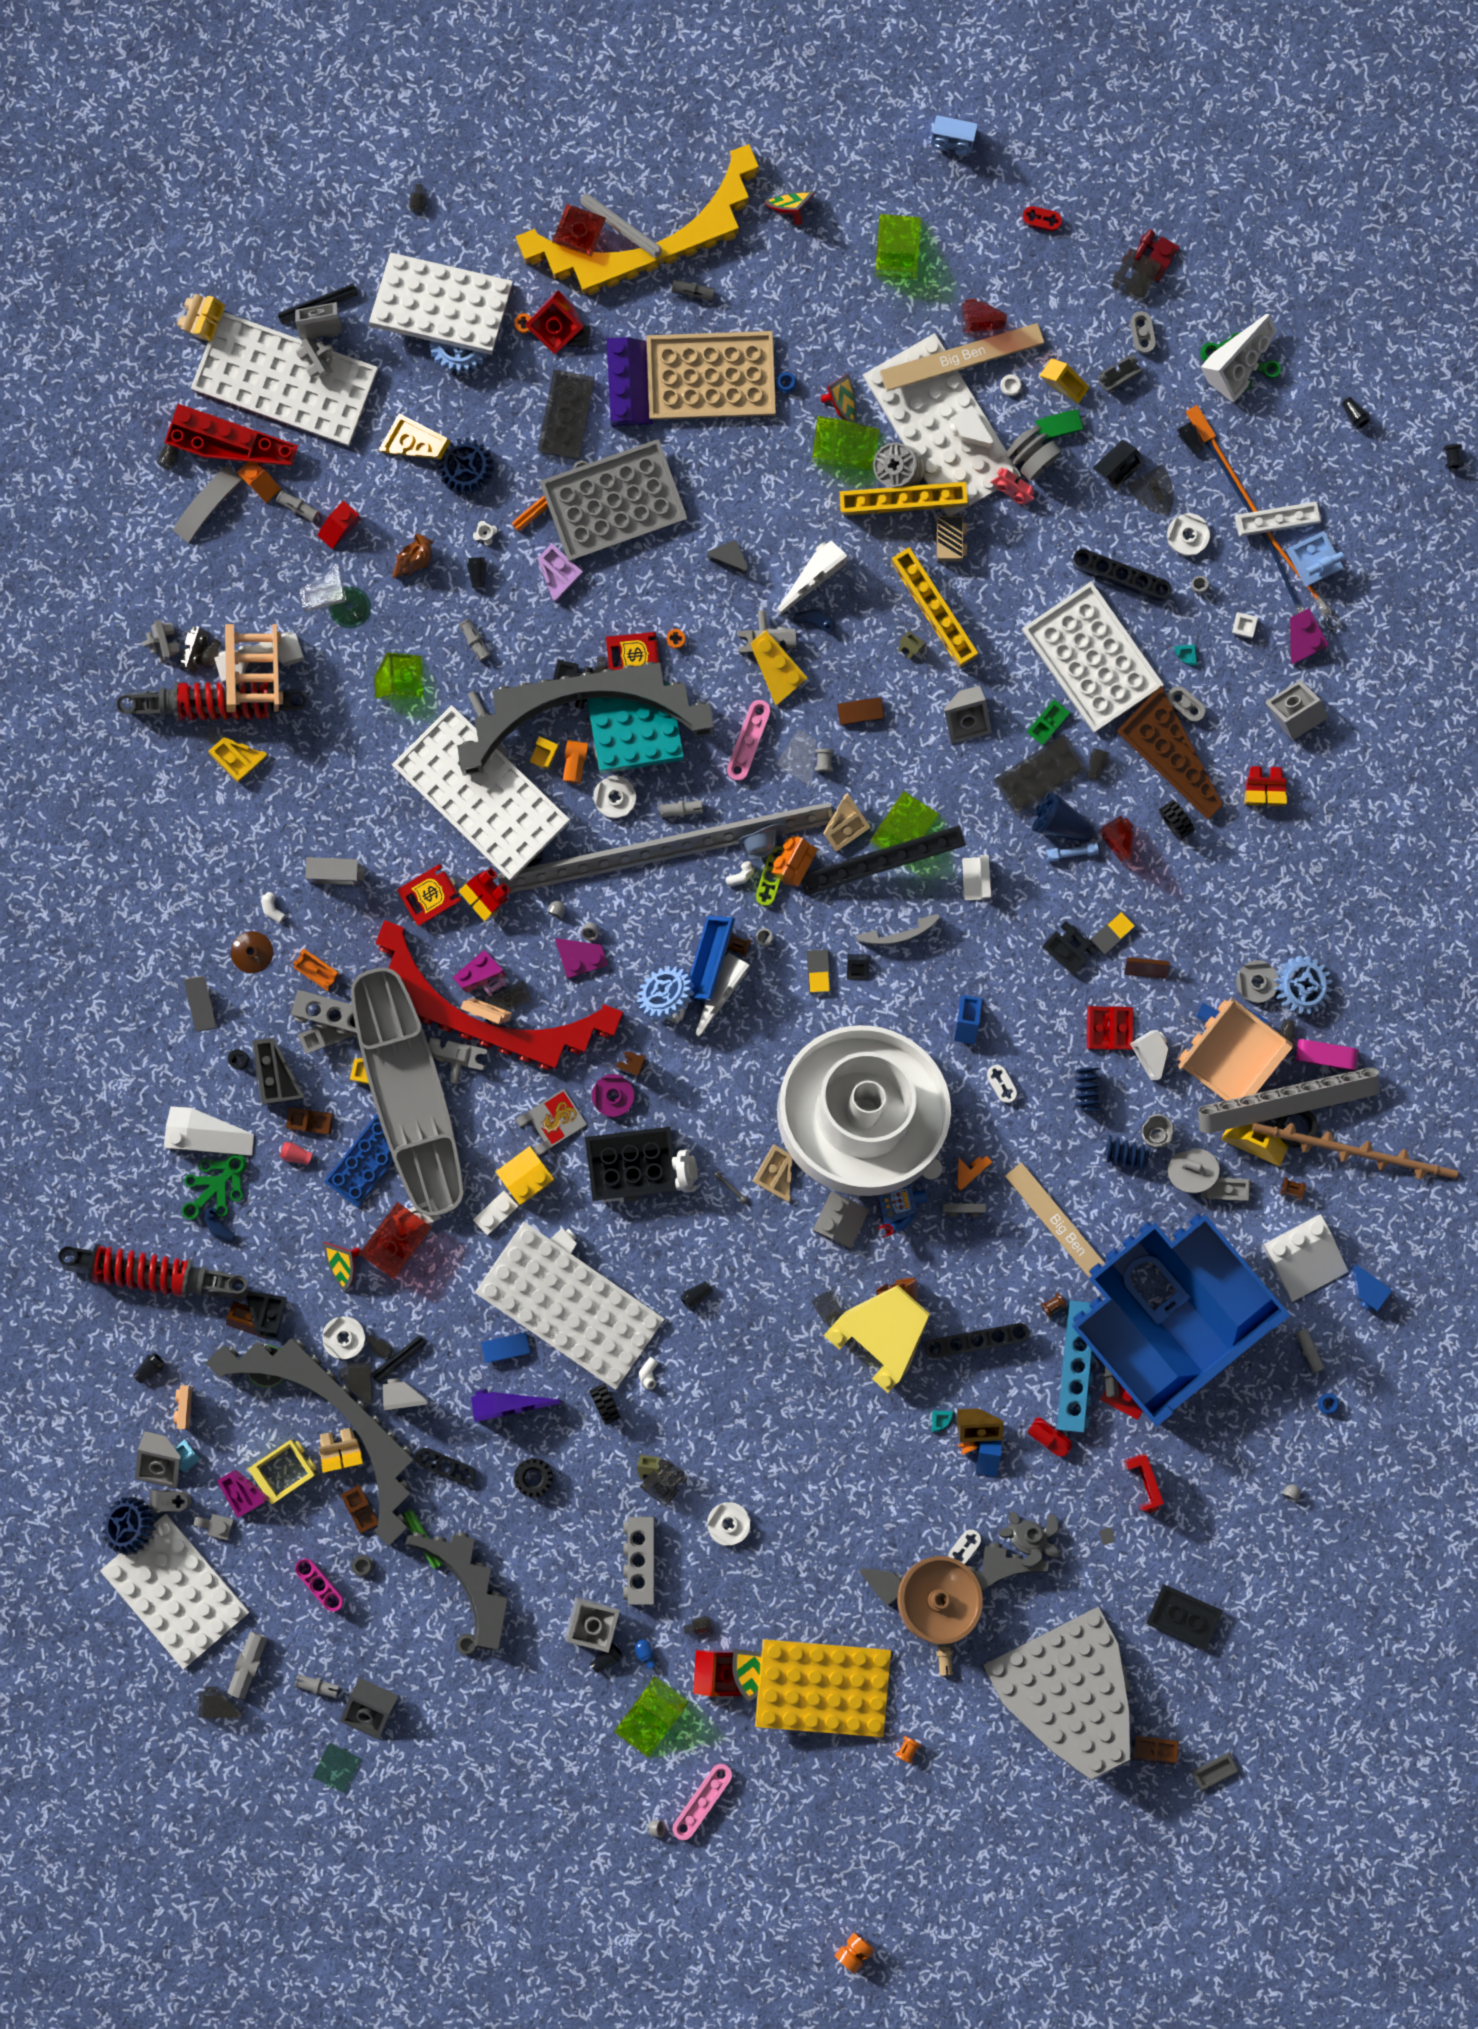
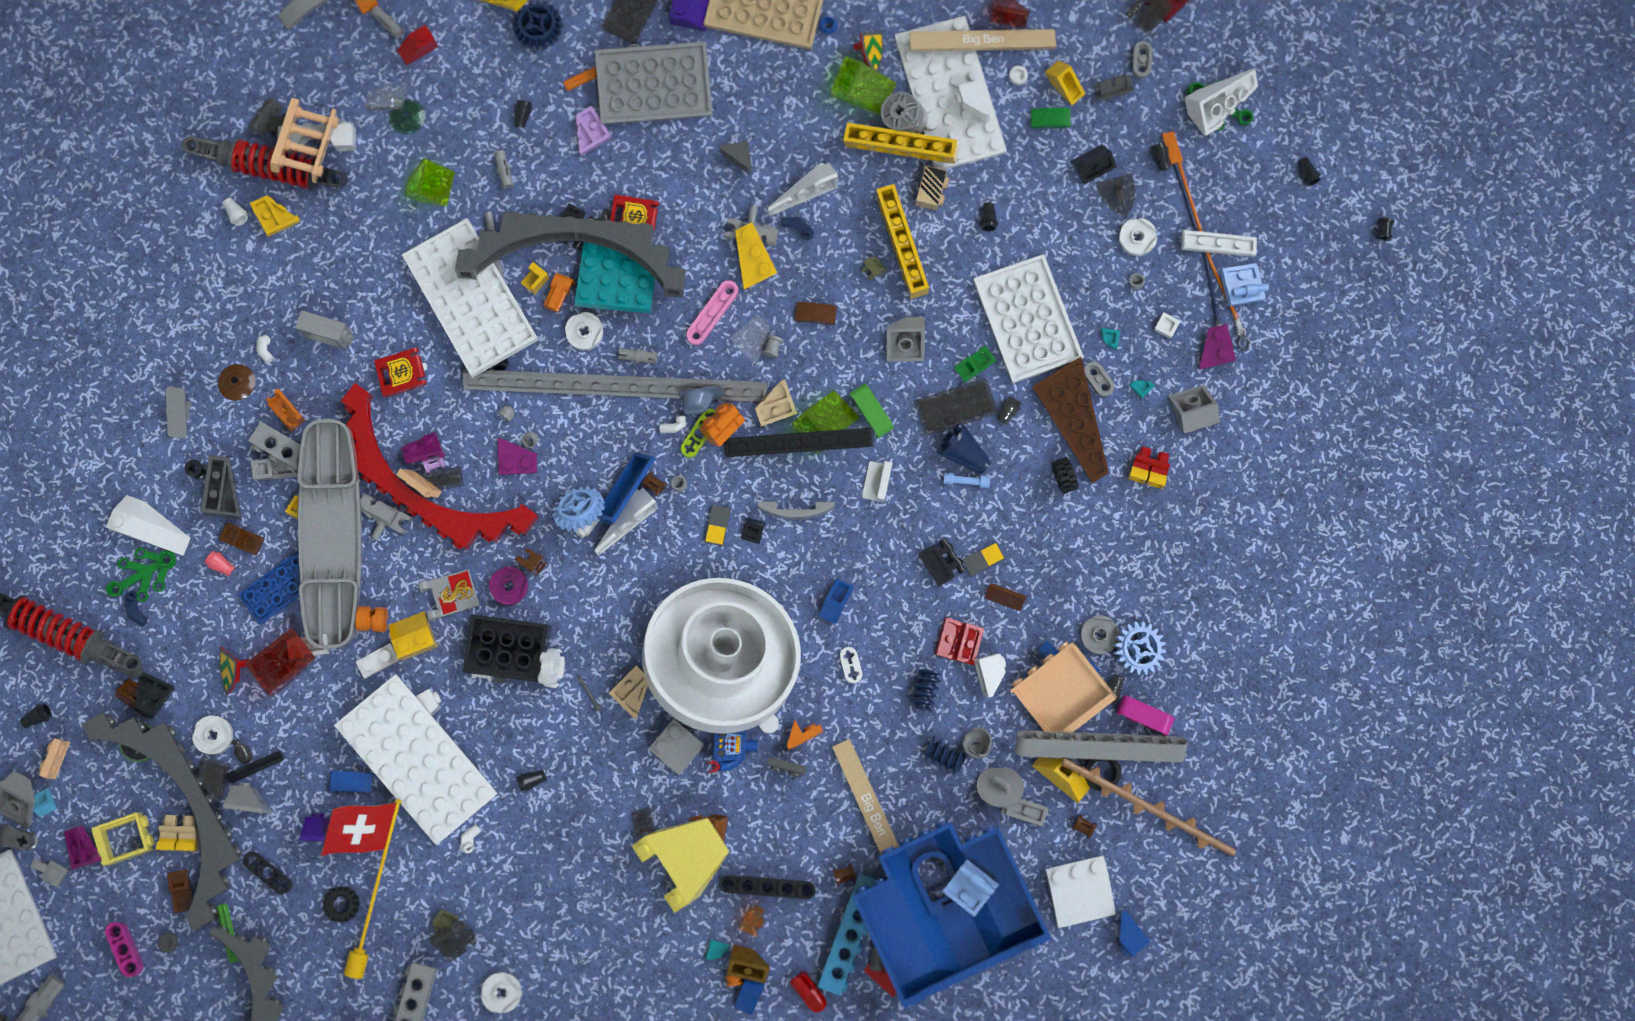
camera: 15 degrees right, 5 degrees down
(160, 632) = (241, 94): light grey hips -> none
(194, 765) = (235, 213): none -> white cone
(413, 556) = (471, 87): dark orange hair -> none
(477, 1170) = (371, 619): none -> orange wheel
(483, 526) = (538, 78): white plate -> none
(485, 894) = (447, 383): red hips -> none
(534, 1396) = (361, 831): none -> red flag
(605, 1404) = (421, 855): black tyre -> none
(671, 643) = (669, 214): orange bush -> none
(946, 798) = (872, 410): none -> bright green beam
(971, 1379) = (752, 920): none -> clear orange brick
(1020, 492) = (991, 152): coral hinge -> none
(1020, 556) = (988, 218): none -> black cone
(1033, 452) = (1020, 131): light grey wheel -> none
(1119, 837) = (1010, 475): clear red slope -> none
(1132, 575) = (1068, 247): black beam -> none
(1191, 1284) = (970, 888): none -> light blue plate
(1234, 700) = (1141, 387): none -> teal tile
(1309, 1350) = (1063, 976): light grey pin -> none

